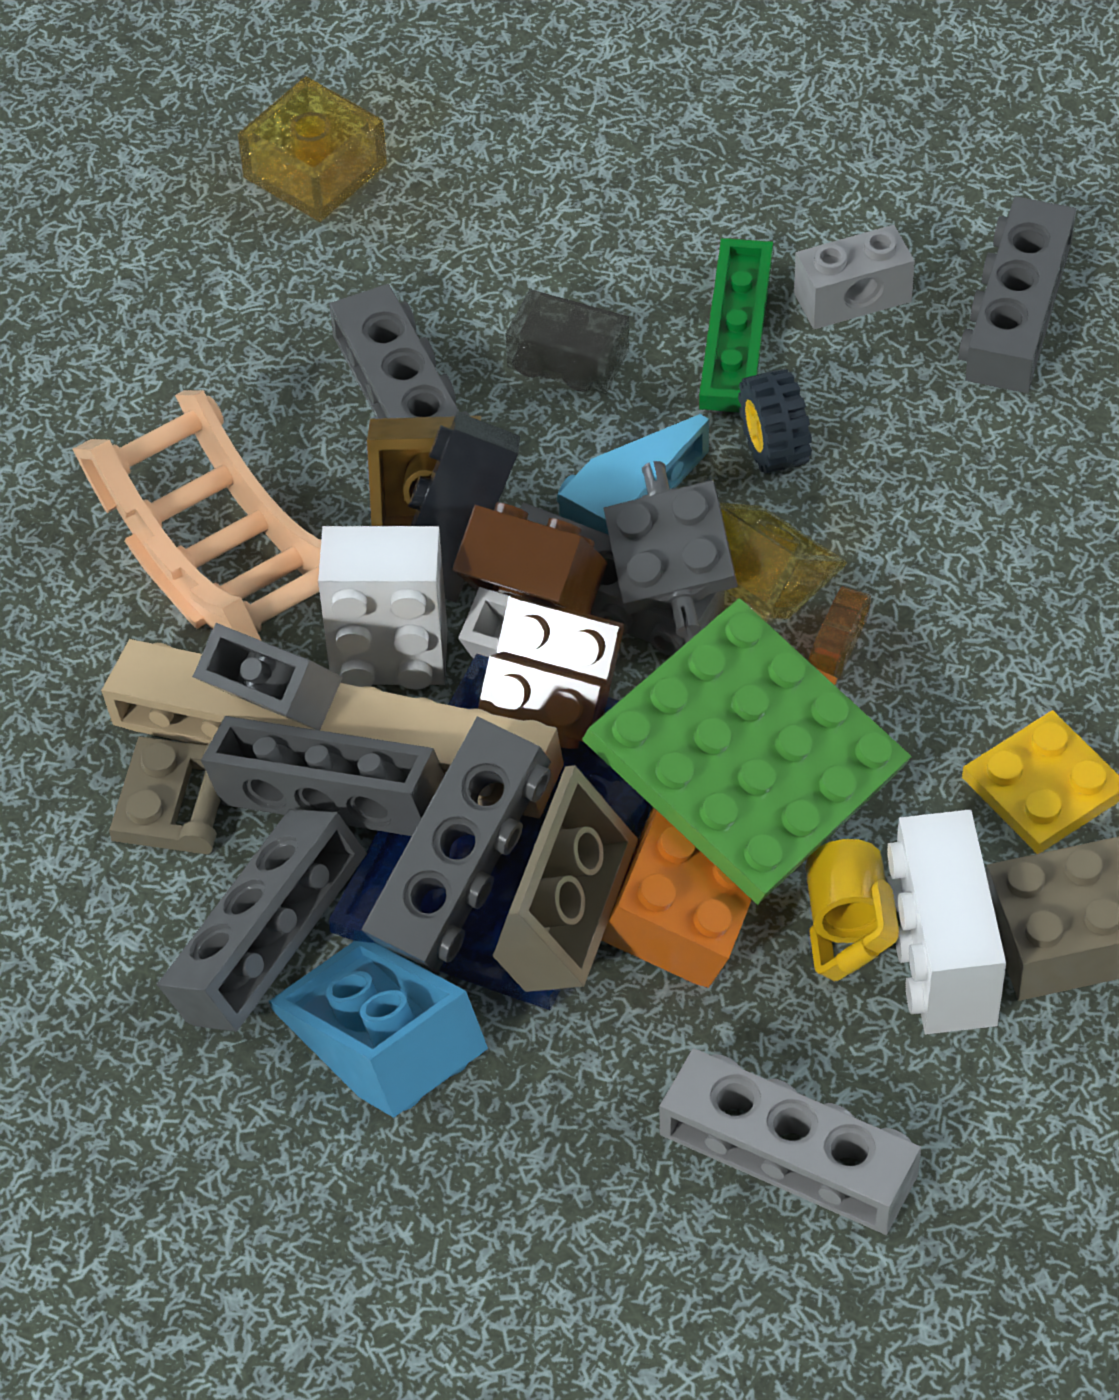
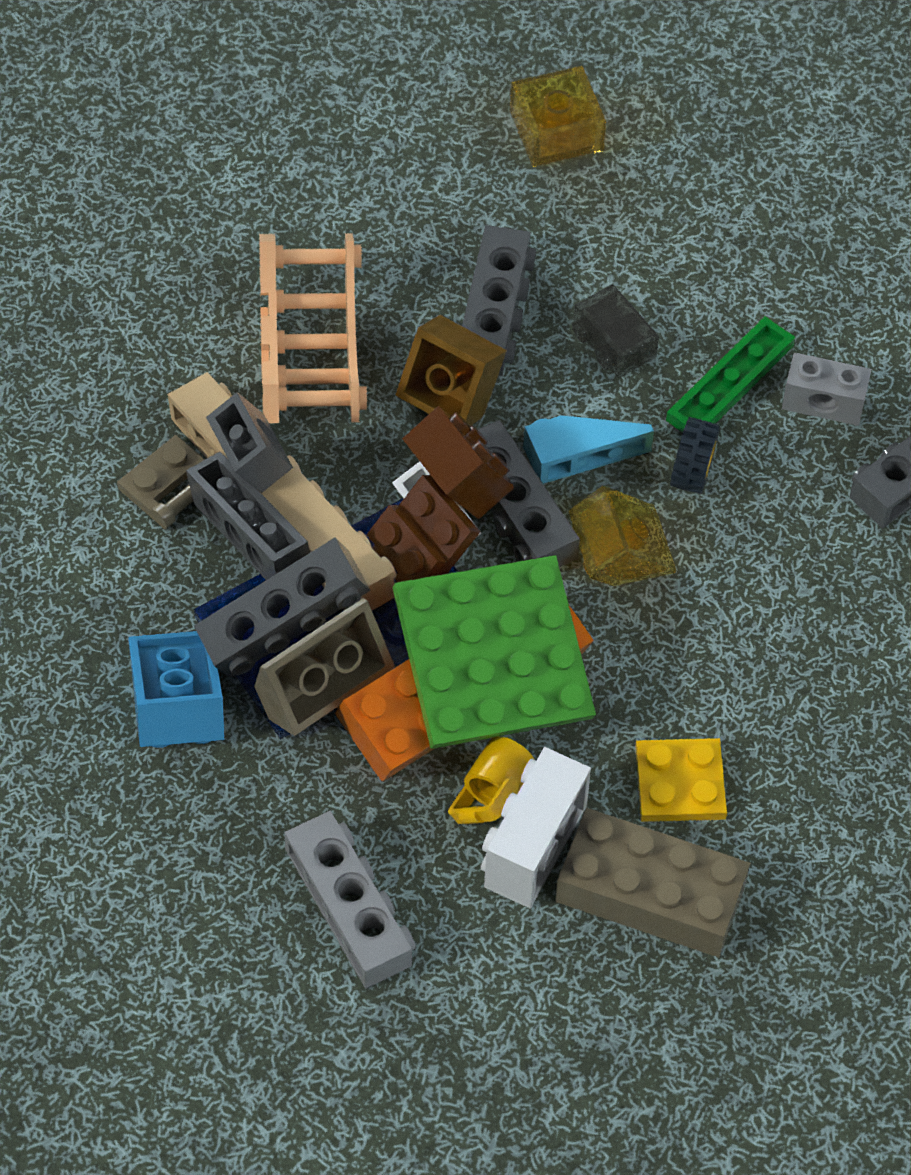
camera: 30 degrees right, 5 degrees up
(262, 919) = (156, 586): dark grey brick -> none
(384, 605) = (358, 437): white brick -> none
(468, 472) = (458, 387): black brick -> none
(670, 548) = (555, 499): dark grey plate -> none
(840, 631) = (628, 614): clear orange beam -> none

